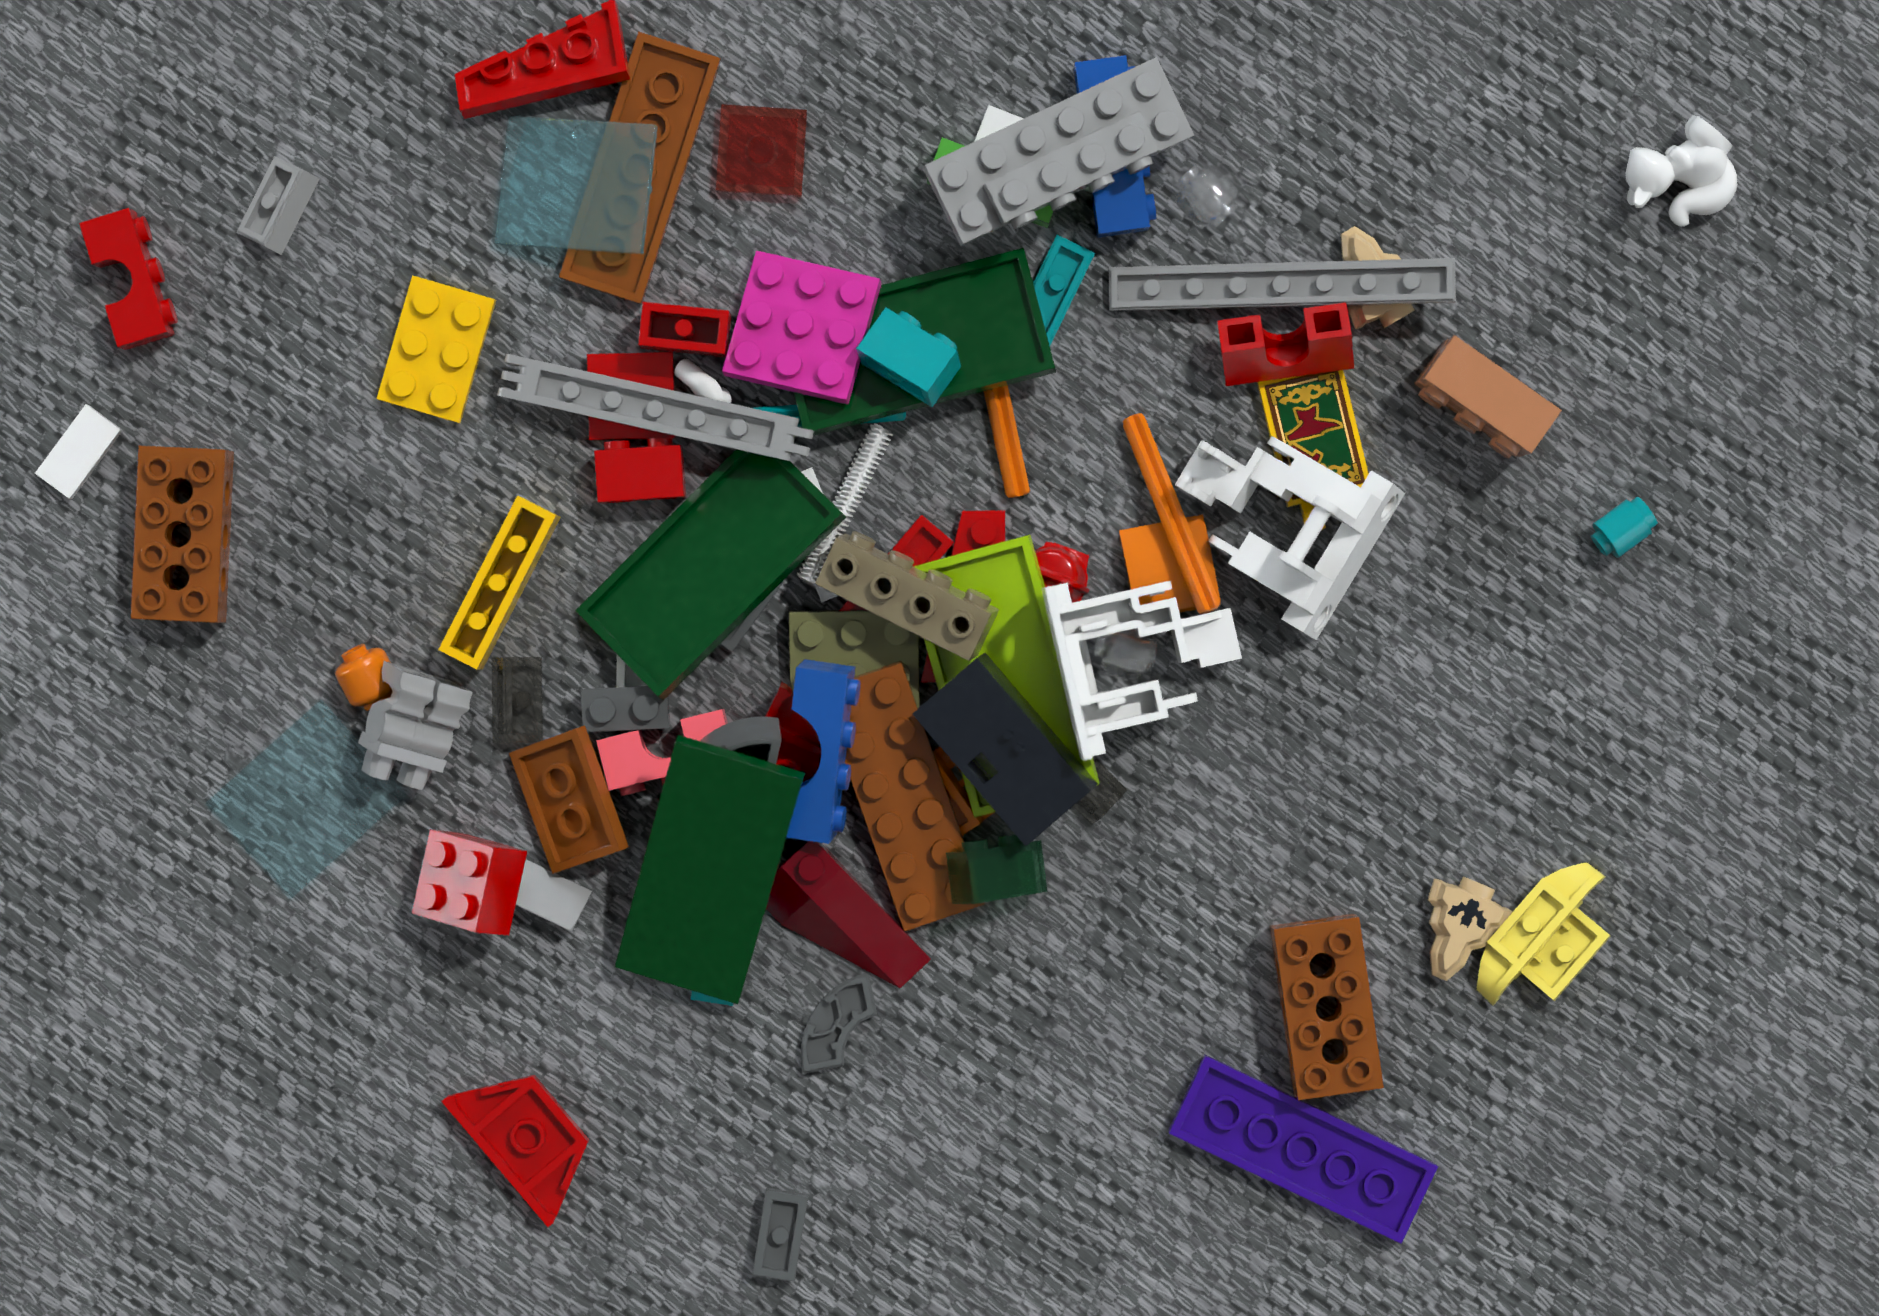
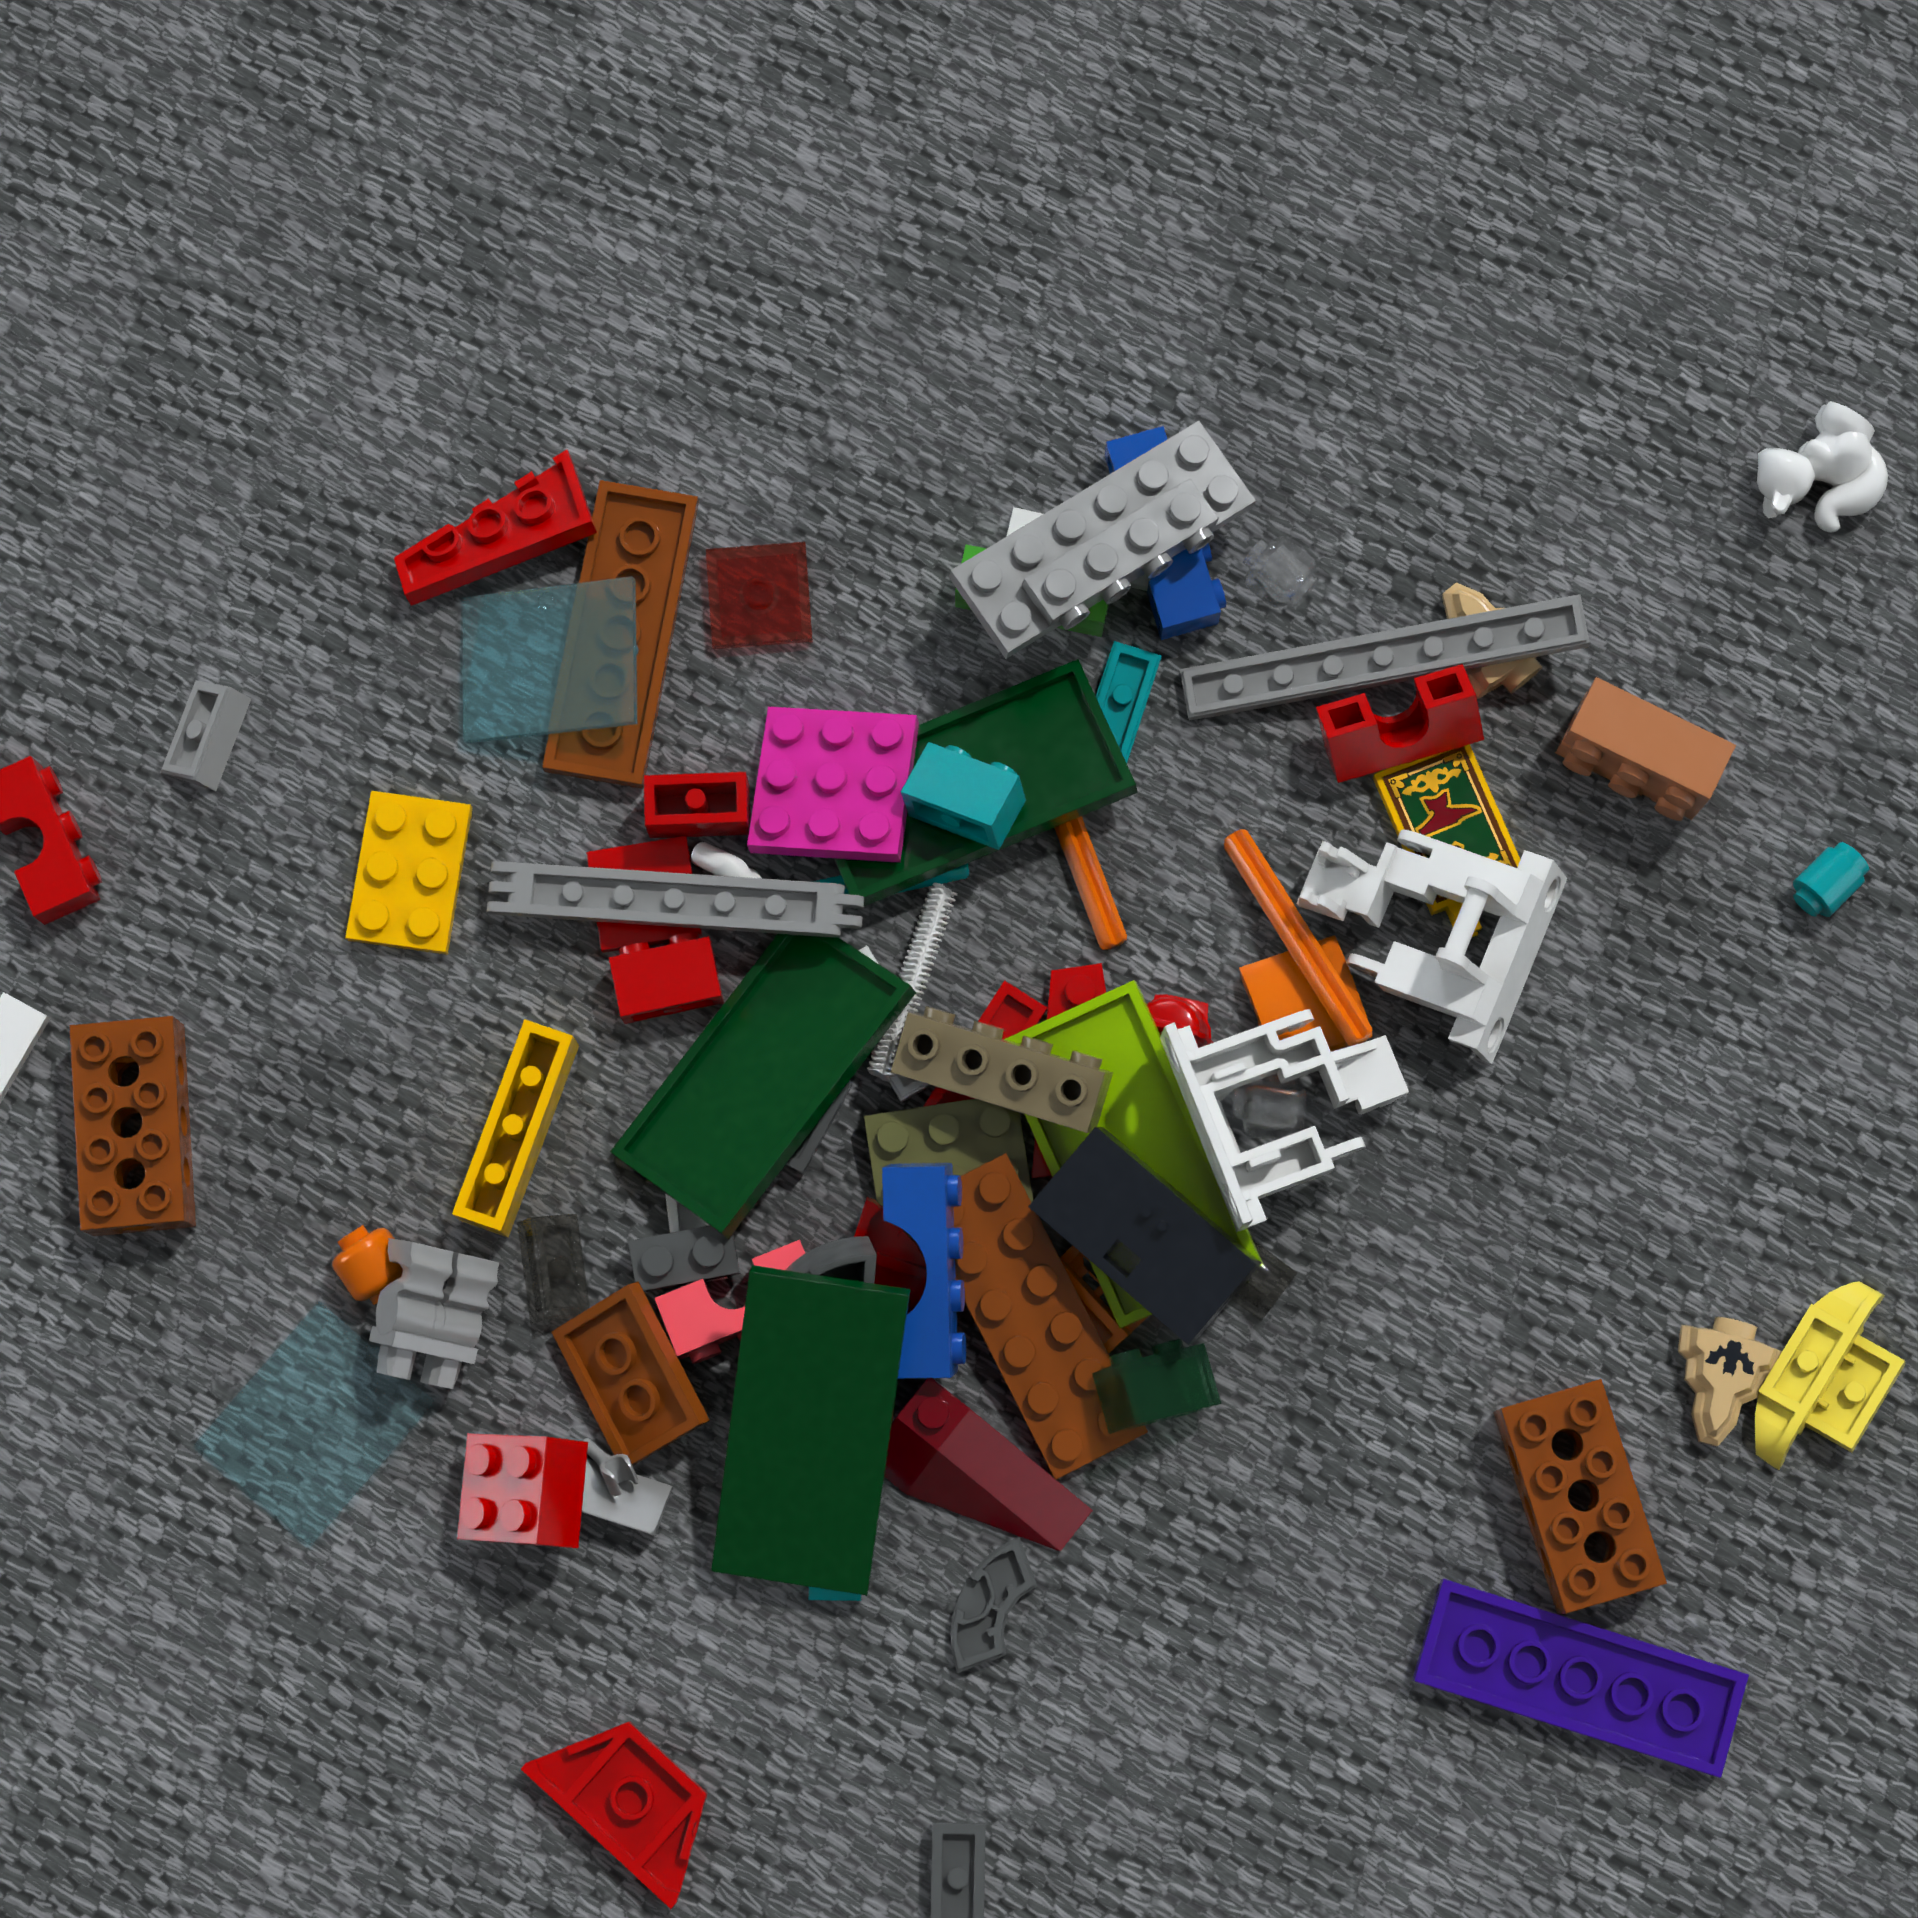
camera: 10 degrees left, 10 degrees down
(544, 871) = (613, 1468): none -> light grey hand

